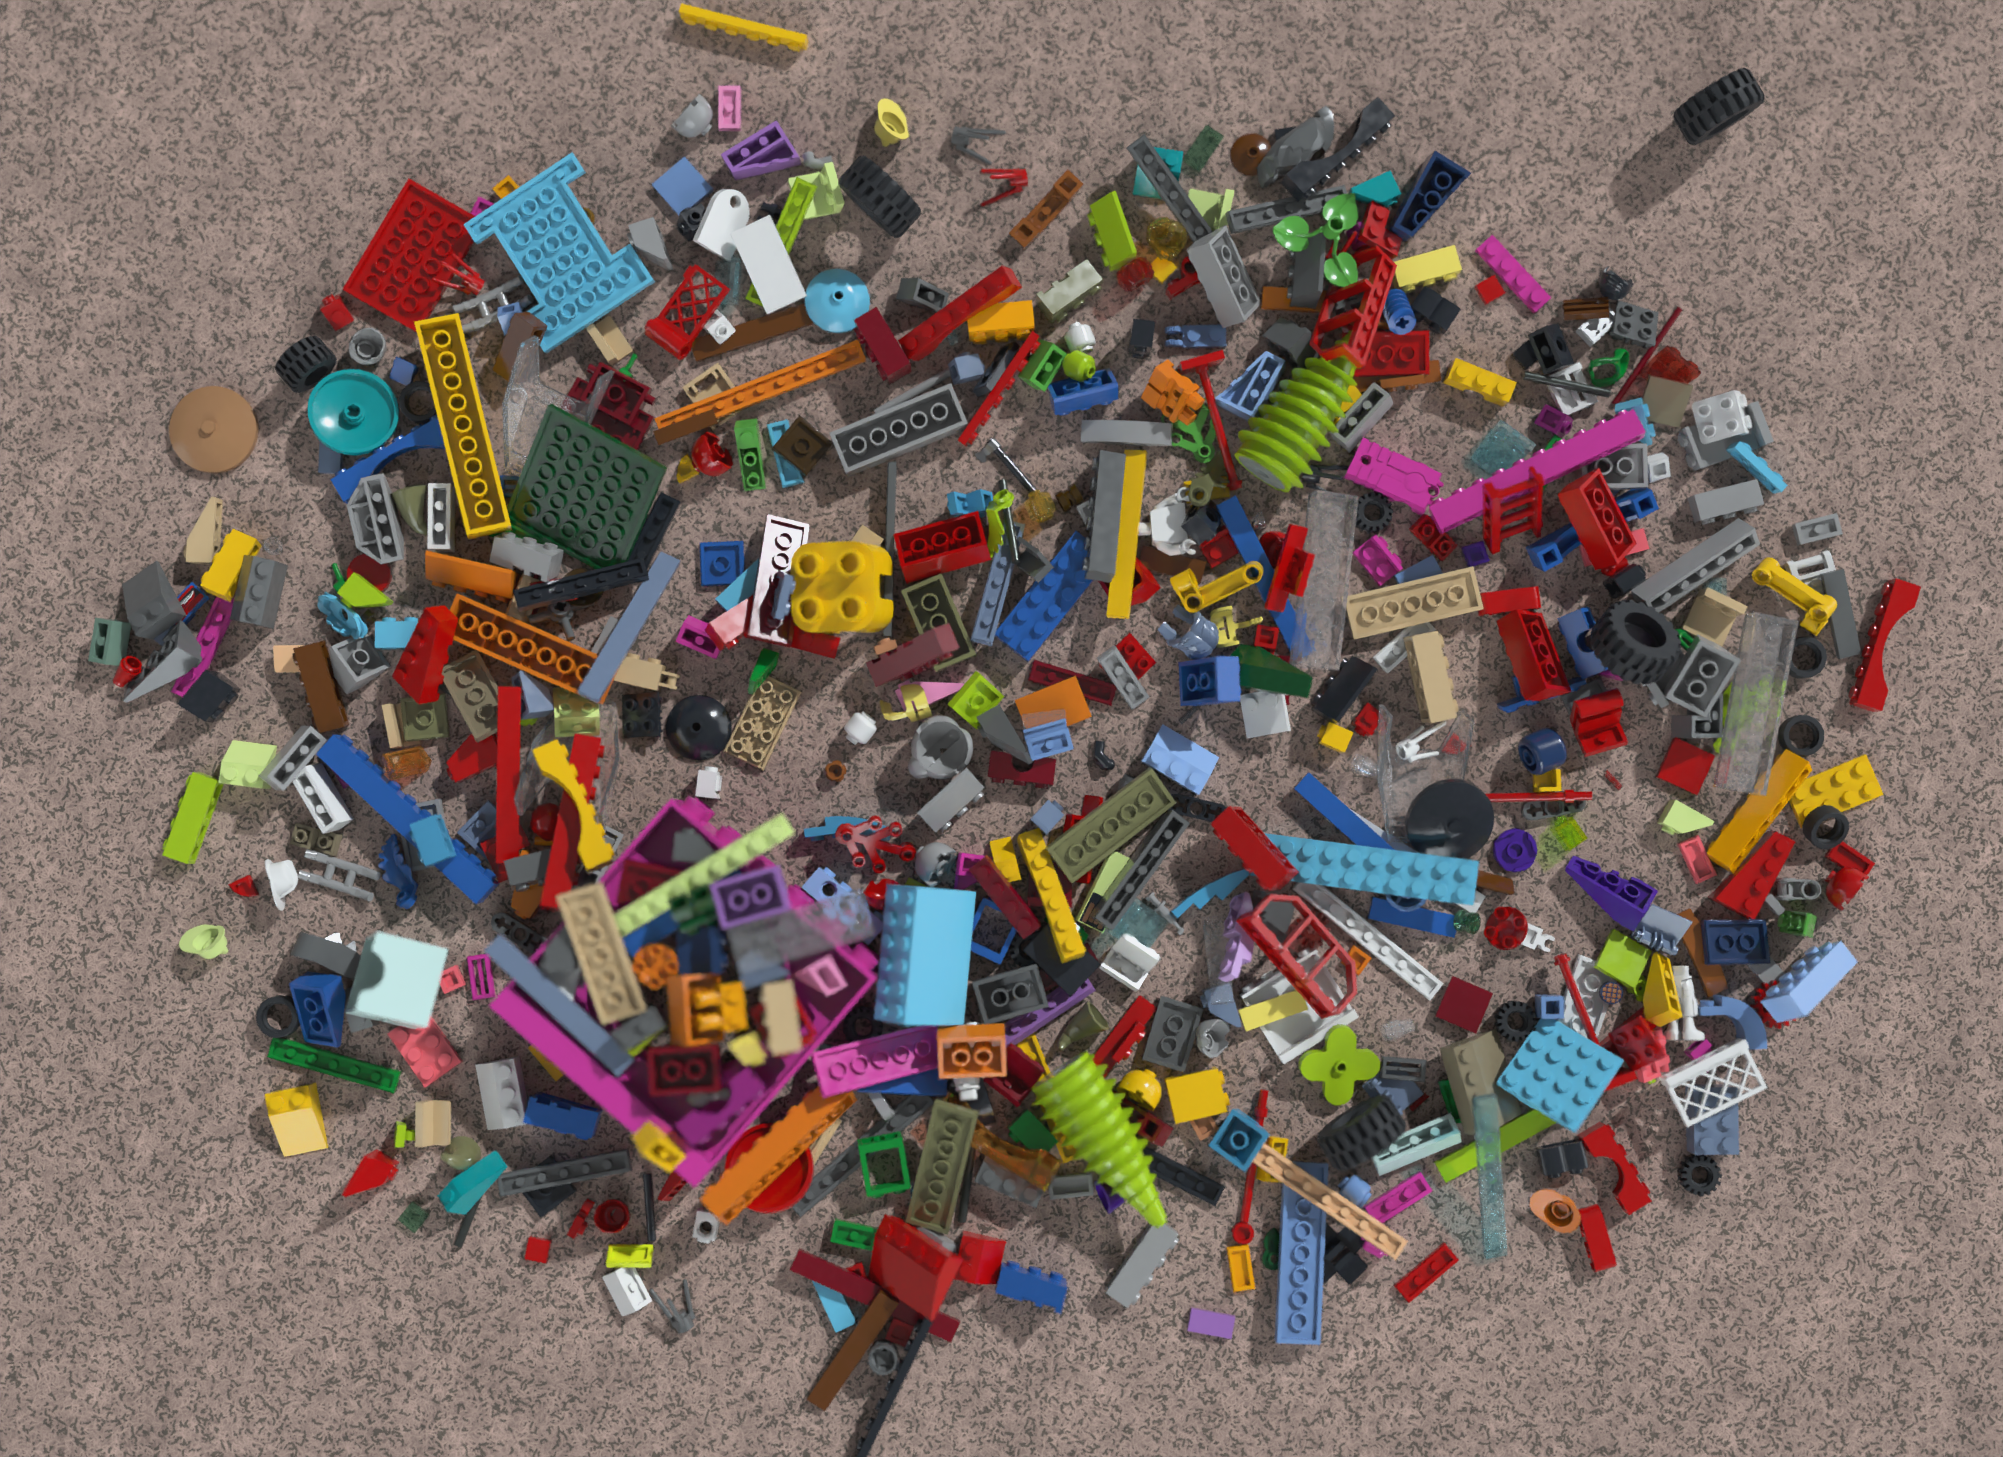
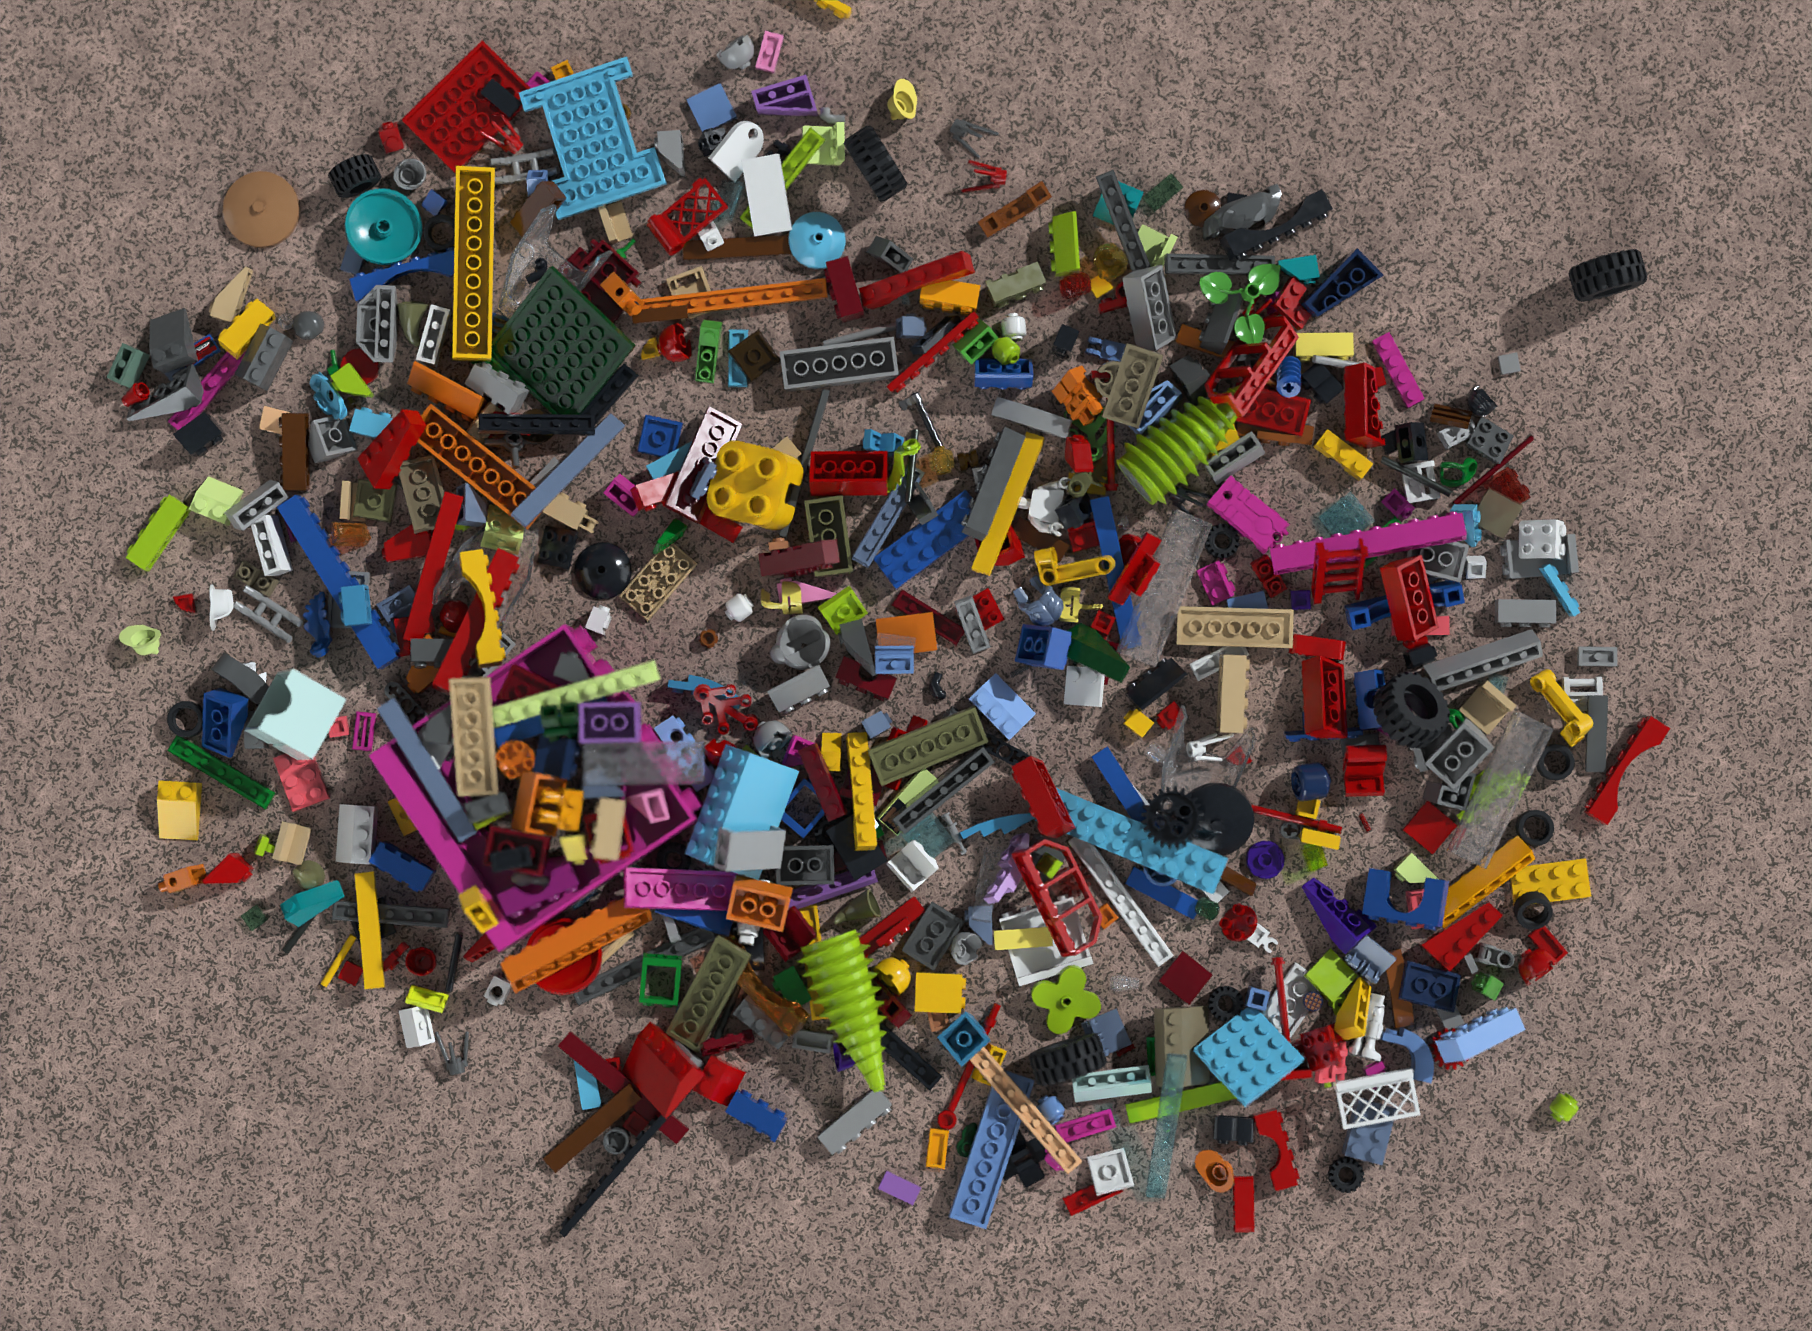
camera: 20 degrees right, 0 degrees up
(299, 543) = (308, 325): none -> dark grey hair
(321, 1196) = (182, 879): none -> orange torso
(446, 236) = (501, 98): none -> black tile
(520, 1238) = (338, 960): none -> yellow bar
(539, 408) = (540, 269): none -> black arm
(545, 1198) = (369, 930): none -> yellow tile
(645, 420) = (629, 300): none -> orange torso
(680, 1080) = (510, 858): none -> black tile
(776, 1098) = (585, 899): none -> sticker
(853, 1234) = (618, 1031): green plate -> none
(945, 995) = (749, 849): none -> light grey panel
(977, 1214) = (727, 1043): none -> dark red hinge
(1190, 458) = (1078, 454): none -> red slope
(1226, 365) = (1129, 384): none -> dark tan plate
(1280, 921) = (1048, 865): none -> lime tile
(1384, 1067) = (1103, 1012): dark grey tile -> none
(1402, 852) = (1179, 802): none -> black gear
(1439, 1242) = (1110, 1171): none -> white tile
(1448, 282) = (1332, 361): none -> light grey bar
(1486, 323) = (1361, 406): none -> red wedge
(1571, 811) = (1320, 838): none -> yellow slope
(1632, 235) = (1509, 363): none -> light grey tile
(1654, 866) = (1378, 902): none -> blue arch
(1918, 1035) = (1563, 1107): none -> lime head

